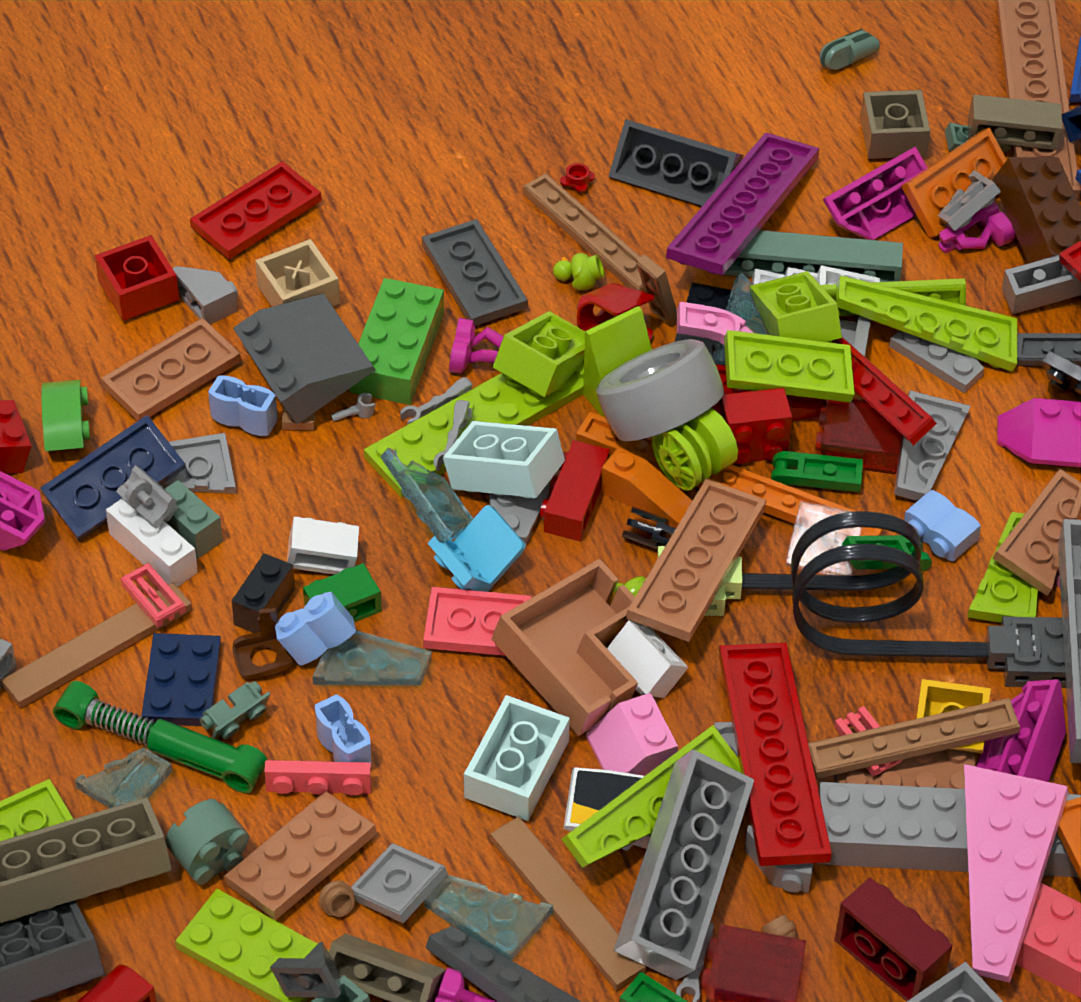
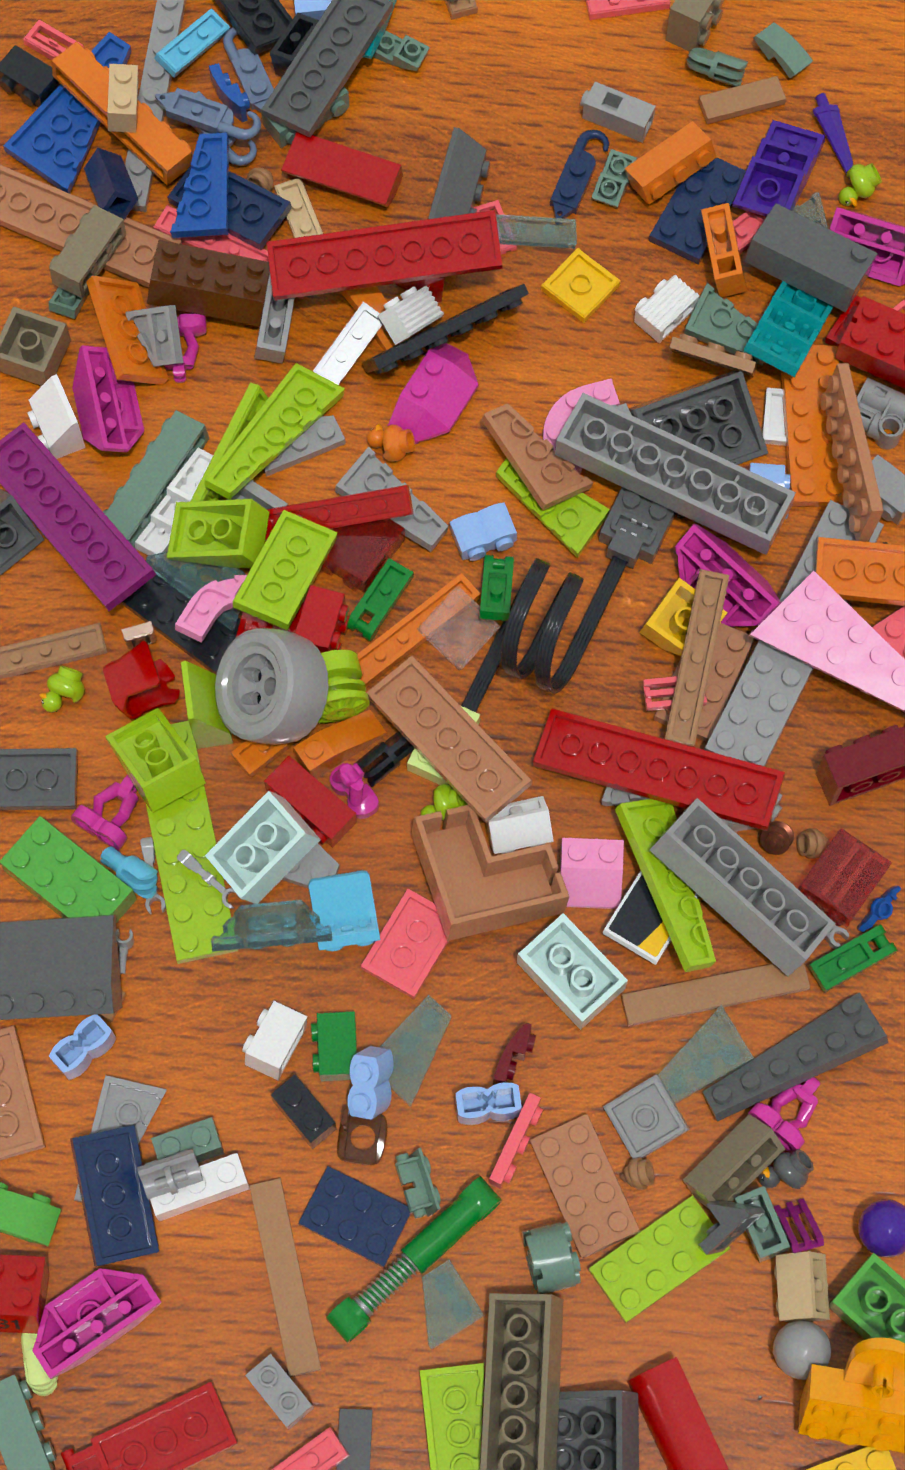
camera: 65 degrees left, 20 degrees up
(165, 612) = (286, 1202): coral tile -> none
(419, 744) = (520, 1043): none -> dark red slope
(428, 381) = (132, 871): none -> medium azure arm
(607, 517) = (348, 782): none -> dark pink piece
(765, 894) = (777, 838): none -> copper wheel
(837, 166) = (55, 419): none -> white slope
(987, 421) = (394, 441): none -> orange animal

